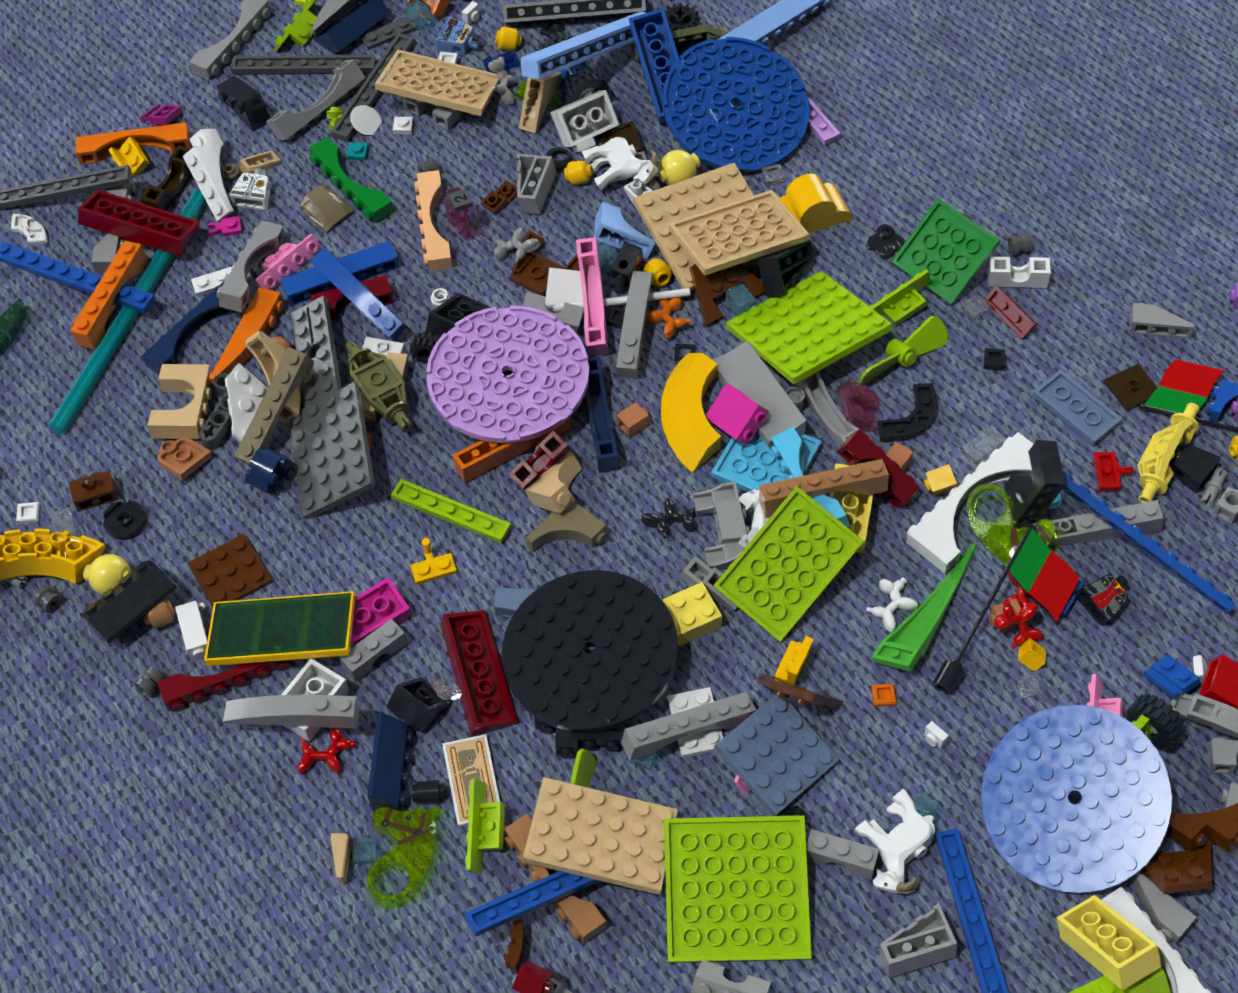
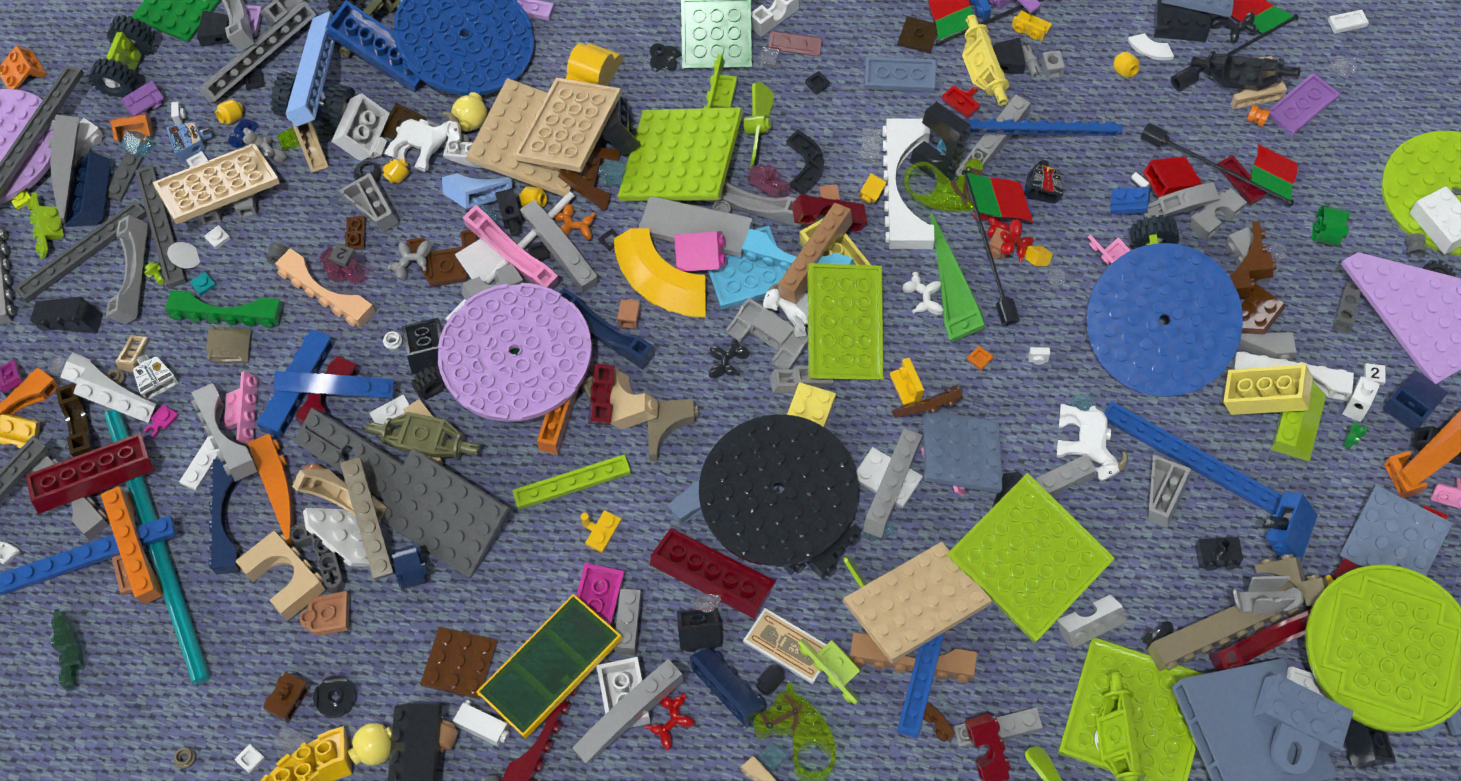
camera: 45 degrees left, 5 degrees up
(773, 175) = (537, 67): clear plate -> none

